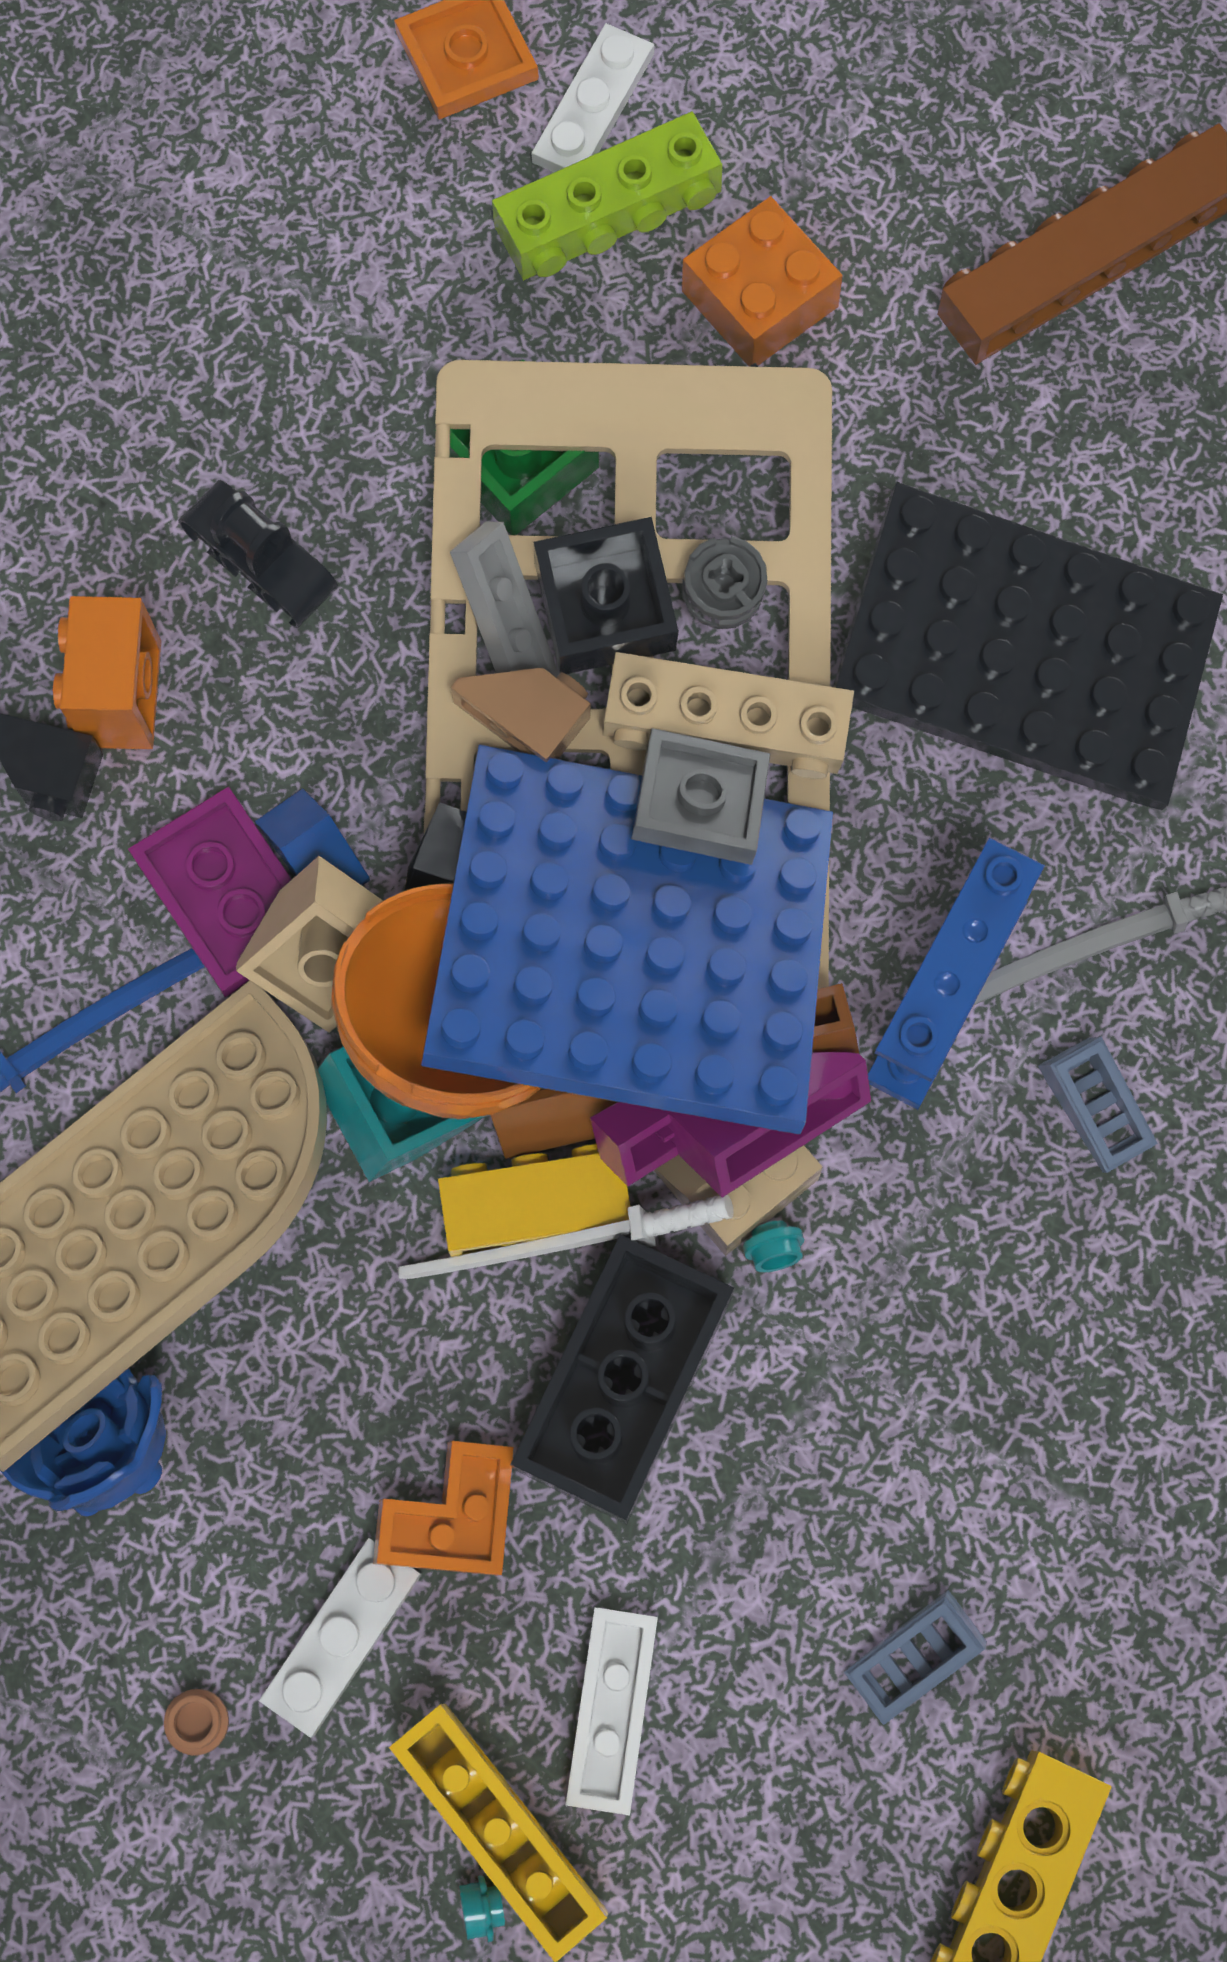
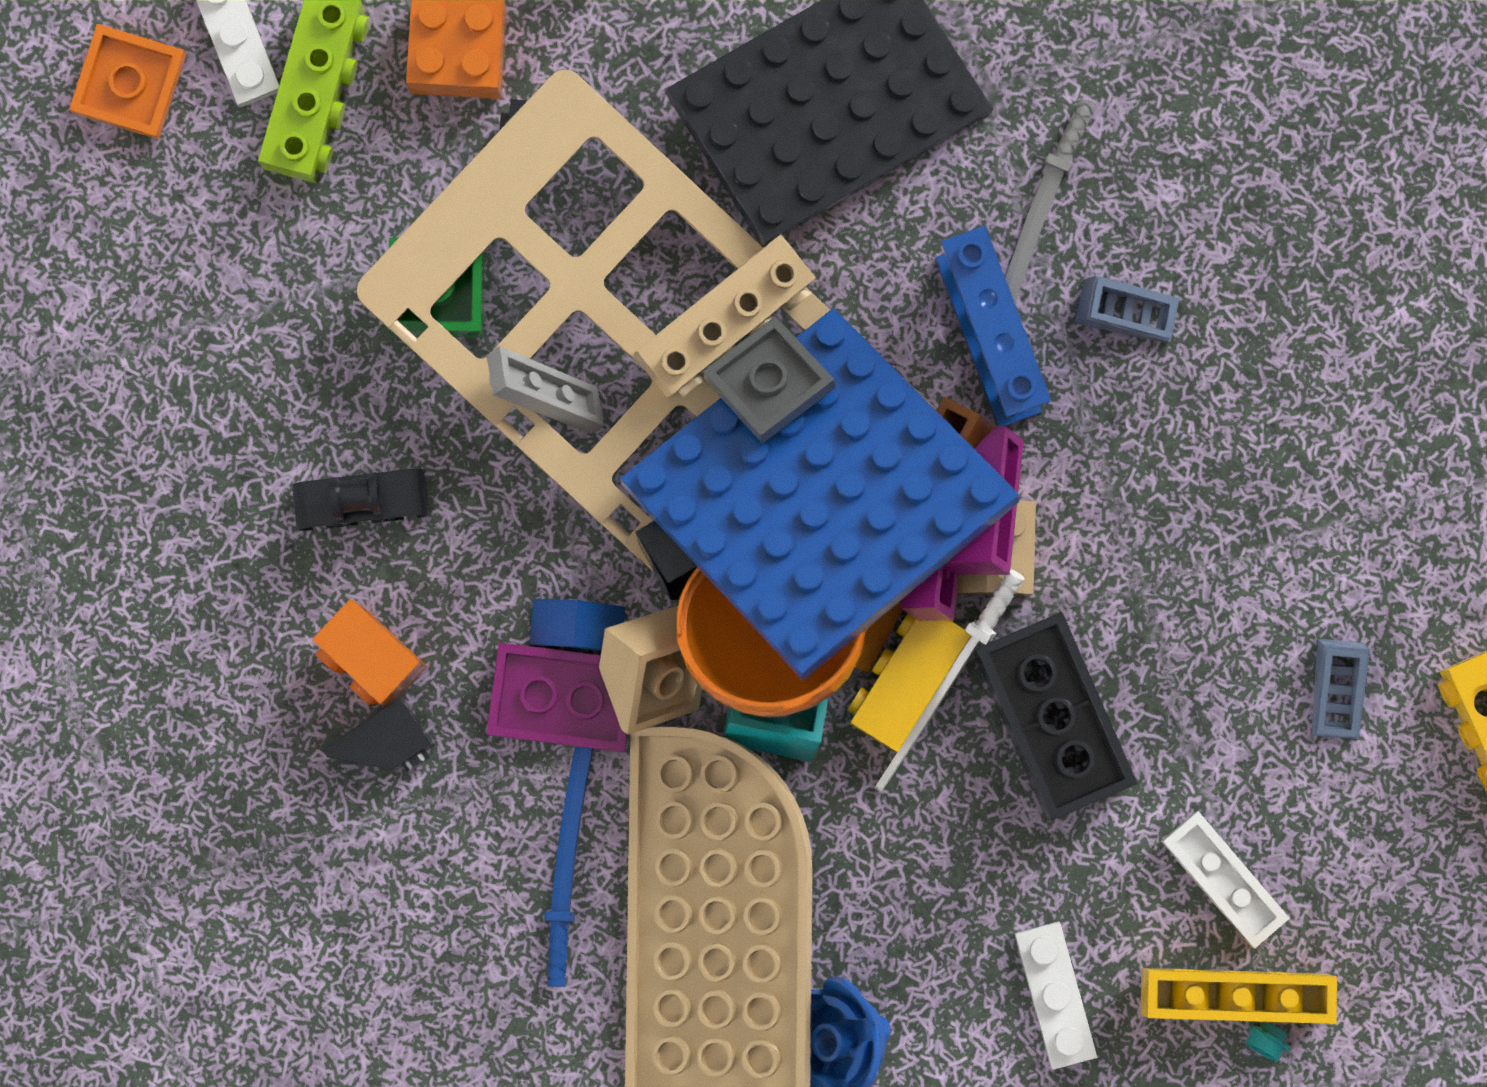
camera: 55 degrees left, 10 degrees up
(465, 1529) = (1057, 876): orange plate -> none
(526, 708) = (622, 430): medium nougat slope -> none
(605, 595) = (596, 326): black brick -> none
(724, 582) = (643, 246): dark grey wheel -> none
(774, 1246) = (1051, 565): teal plate -> none

